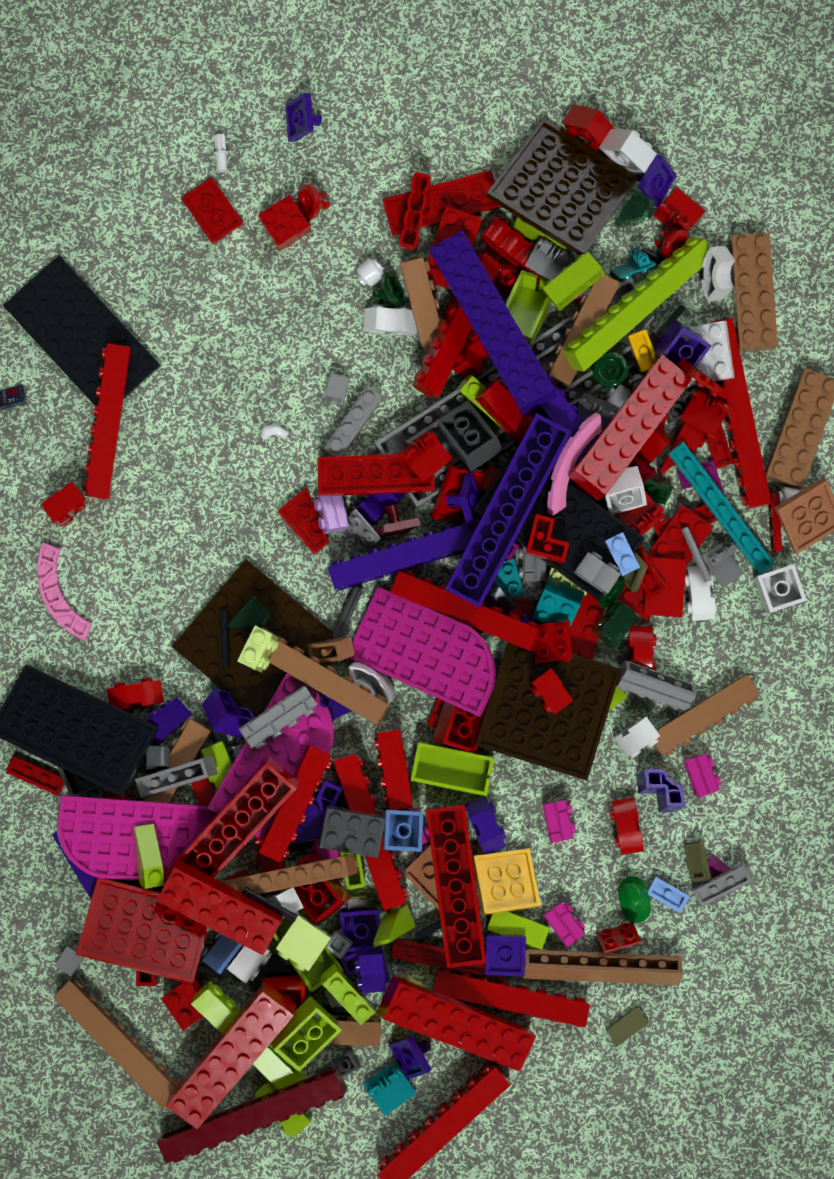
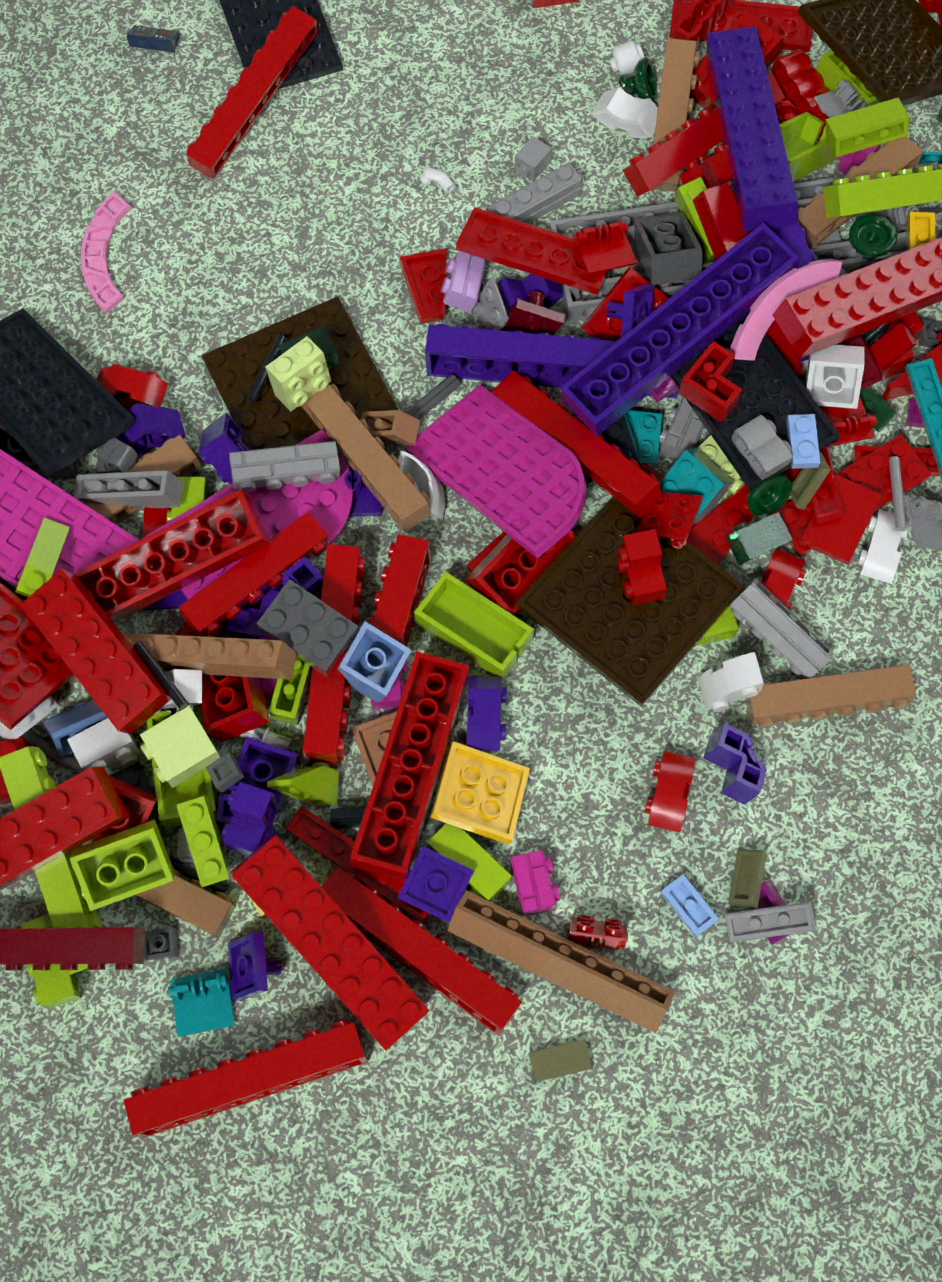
camera: 25 degrees right, 15 degrees down
(64, 504) = (156, 151): red brick -> none
(558, 820) = (582, 748): dark pink brick -> none
(634, 899) = (641, 894): green piece -> none
(701, 775) = (797, 769): dark pink brick -> none

